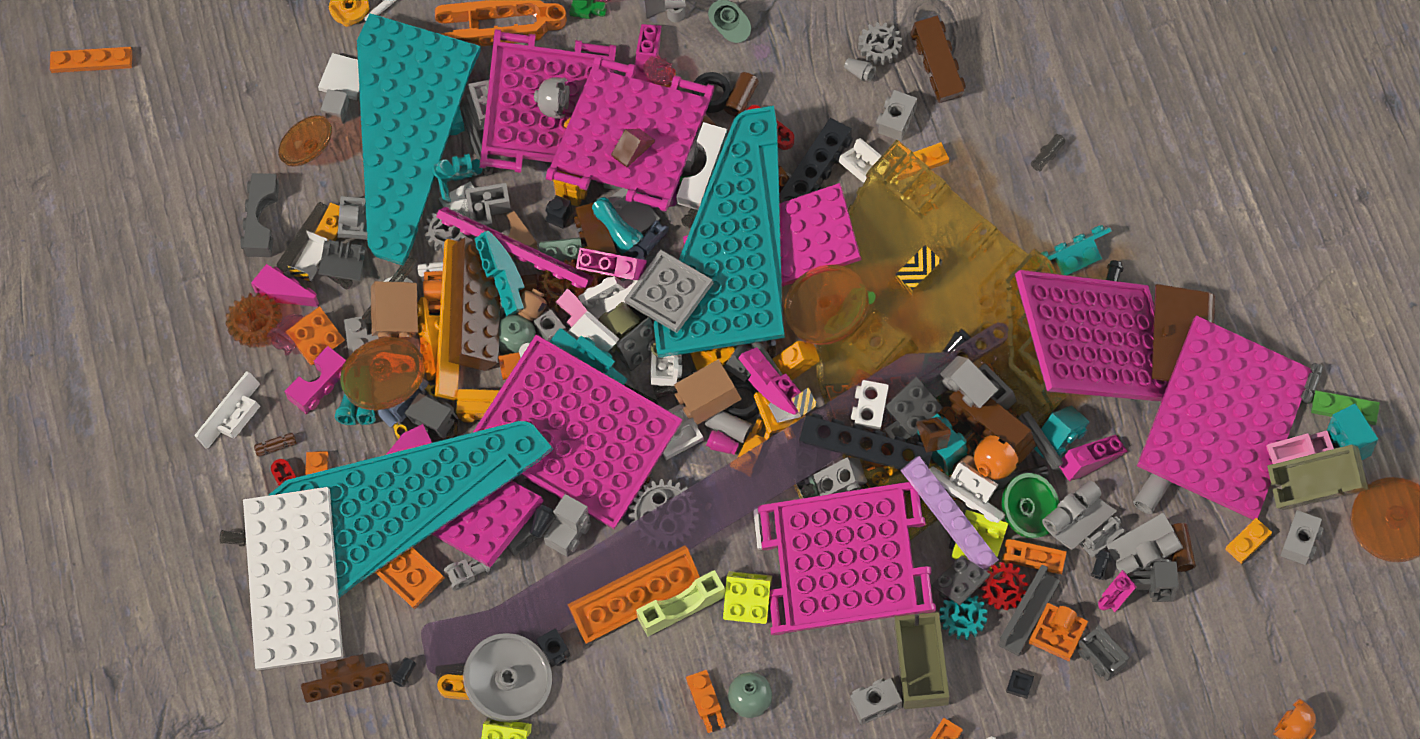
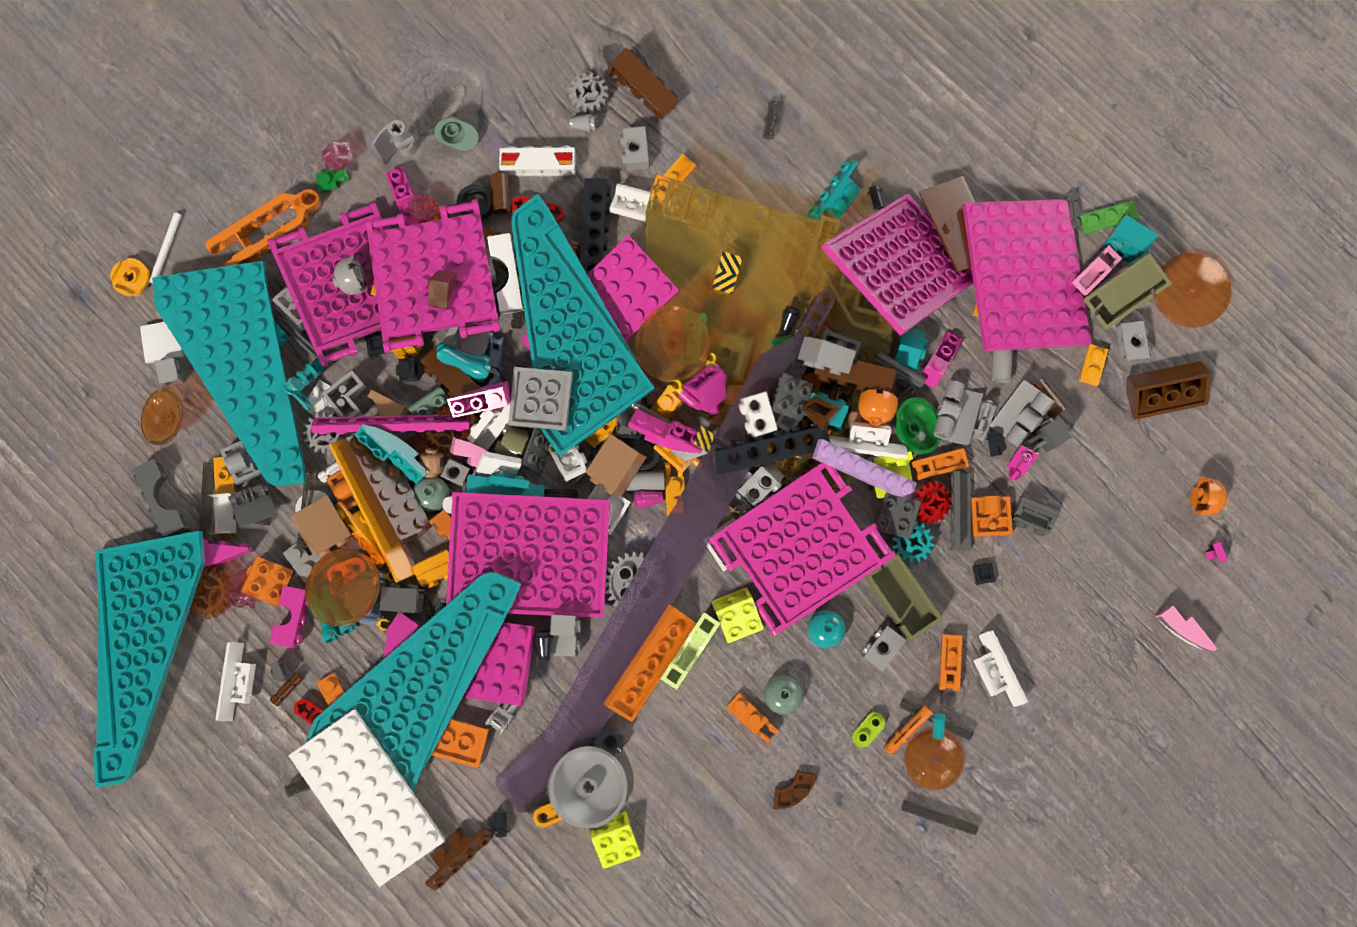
camera: 30 degrees left, 15 degrees up
(182, 307) = (141, 615): none -> teal wing
(277, 423) = (279, 671): none -> dark grey plate
(538, 177) = (375, 345): none -> black tile
(795, 82) = (538, 161): none -> white brick
(828, 654) = (826, 629): none -> teal cylinder
(833, 361) = (705, 389): none -> dark pink torso
(1312, 601) = (1168, 390): none -> reddish brown slope

